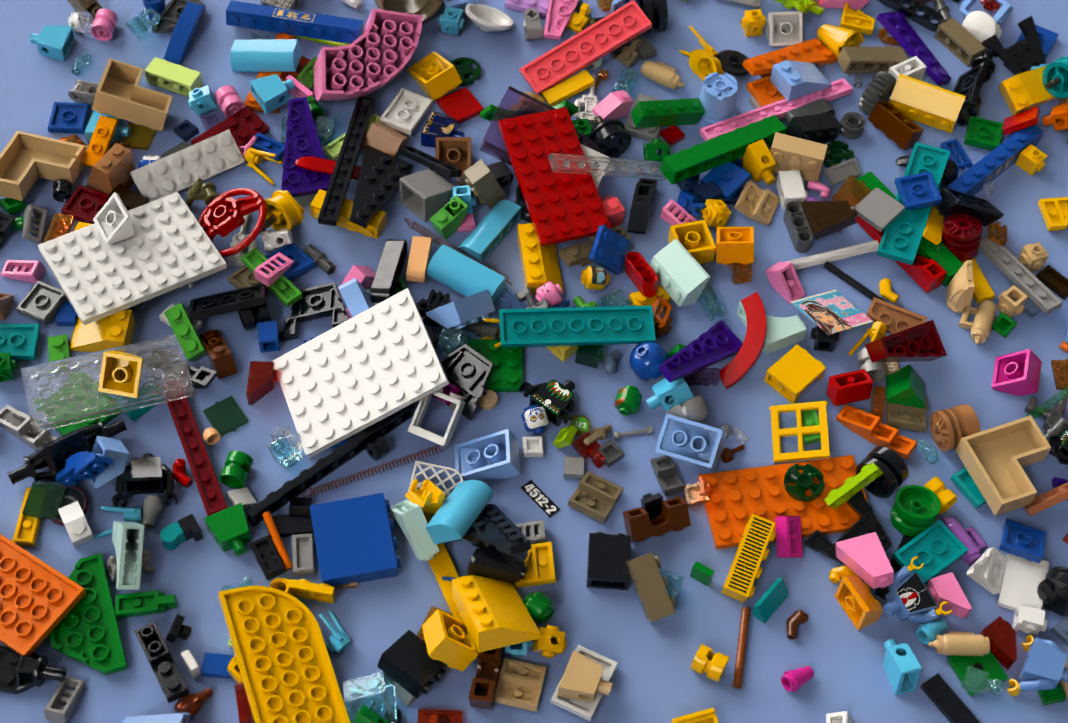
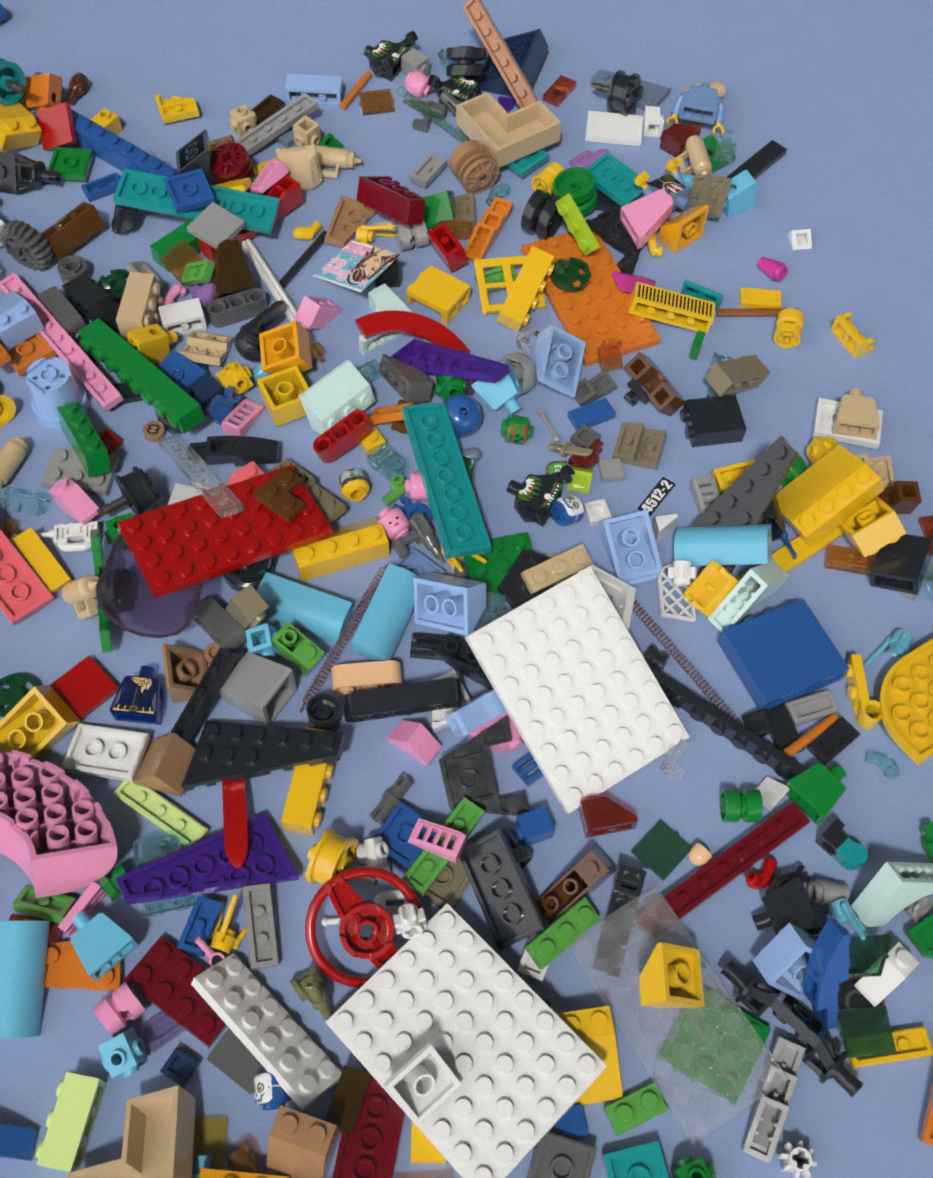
camera: 100 degrees left, 5 degrees up
(92, 511) = (868, 955): none -> clear green piece
(220, 238) = (410, 921): none -> white gear
(255, 174) = (260, 926): none -> light grey plate
(284, 452) = (697, 757): clear light blue bracket -> none
(346, 161) = (225, 795): black plate -> none
(394, 225) = (323, 713): none -> black wheel
(446, 479) = (682, 573): none -> white gear
(471, 387) = (556, 569): none -> tan plate
(501, 485) = (663, 525): none -> white slope
(577, 206) = (277, 494): none -> reddish brown plate
(609, 249) = (323, 470): blue plate -> none
(638, 467) = (591, 414): none -> blue tile
(649, 150) = (144, 449): green brick -> none
(687, 327) = (406, 380): none -> dark grey slope
(759, 657) = (759, 298): none -> yellow tile
(766, 233) = (247, 339): none -> black hair
(786, 437) = (525, 288): none -> yellow brick
(793, 621) = (717, 276): reddish brown arm -> none
(834, 197) = (198, 272): none -> bright green plate
(898, 632) = (709, 191): none -> dark tan slope
(927, 103) = (39, 198): yellow slope -> none
(946, 259) = (269, 176): none -> bright pink slope
(948, 589) = (651, 165): bright pink slope -> none
(961, 395) = (428, 170): none -> light grey plate
(989, 570) = (616, 145): white wing -> none
(1017, 373) = (390, 132): dark pink slope -> none
(1023, 541) = (577, 124): blue plate -> none

